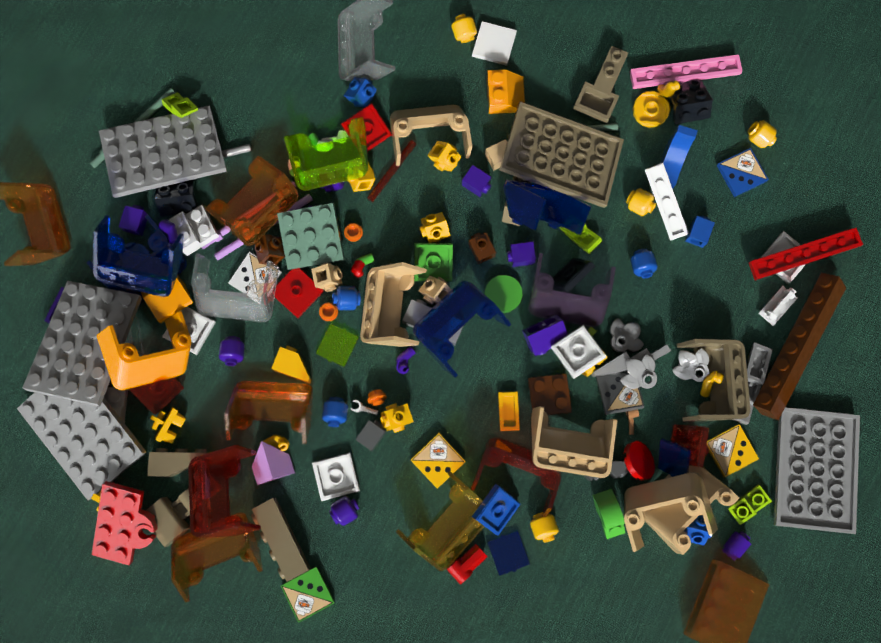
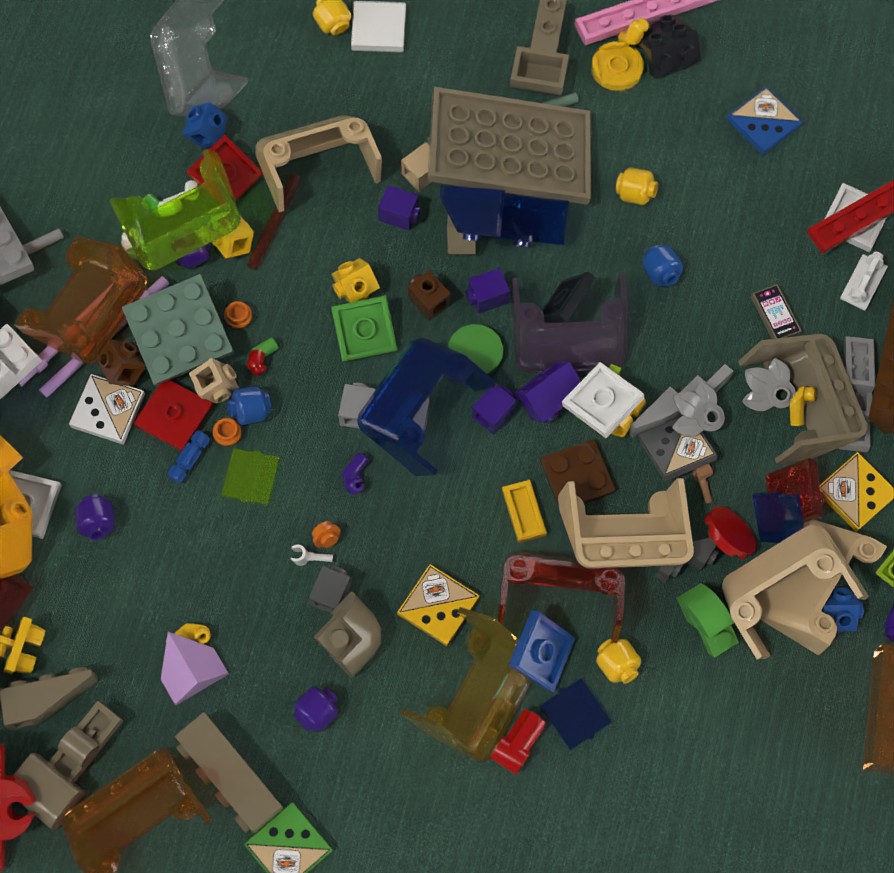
camera: 15 degrees left, 10 degrees down
(210, 493) = (105, 723): clear red windscreen -> none
(250, 306) = (82, 449): clear windscreen -> none
(269, 403) = (169, 580): clear orange windscreen -> none
(291, 364) = (188, 517): yellow slope -> none
(300, 323) = (188, 456): none -> blue axle
(335, 411) = (269, 567): blue head -> none
(335, 476) = (291, 664): white tile -> none
(377, 469) = (351, 635): none -> dark tan brick
(384, 304) = (305, 398): tan windscreen -> none
(396, 417) = (362, 554): yellow brick -> none
(434, 290) = (374, 364): tan brick -> none
(444, 156) = (345, 183): yellow brick -> none
(504, 91) = (407, 83): light orange slope -> none
(506, 337) = (494, 408): none -> dark purple brick
(587, 240) = (573, 253): lime slope -> none
(627, 334) = (663, 370): light grey plate -> none
(666, 201) = (671, 176): white tile -> none
(676, 152) = (666, 114): blue arch -> none
(700, 231) = (728, 207): blue brick -> none
(711, 314) = (775, 313): none -> tile
(762, 134) = (777, 64): yellow head -> none

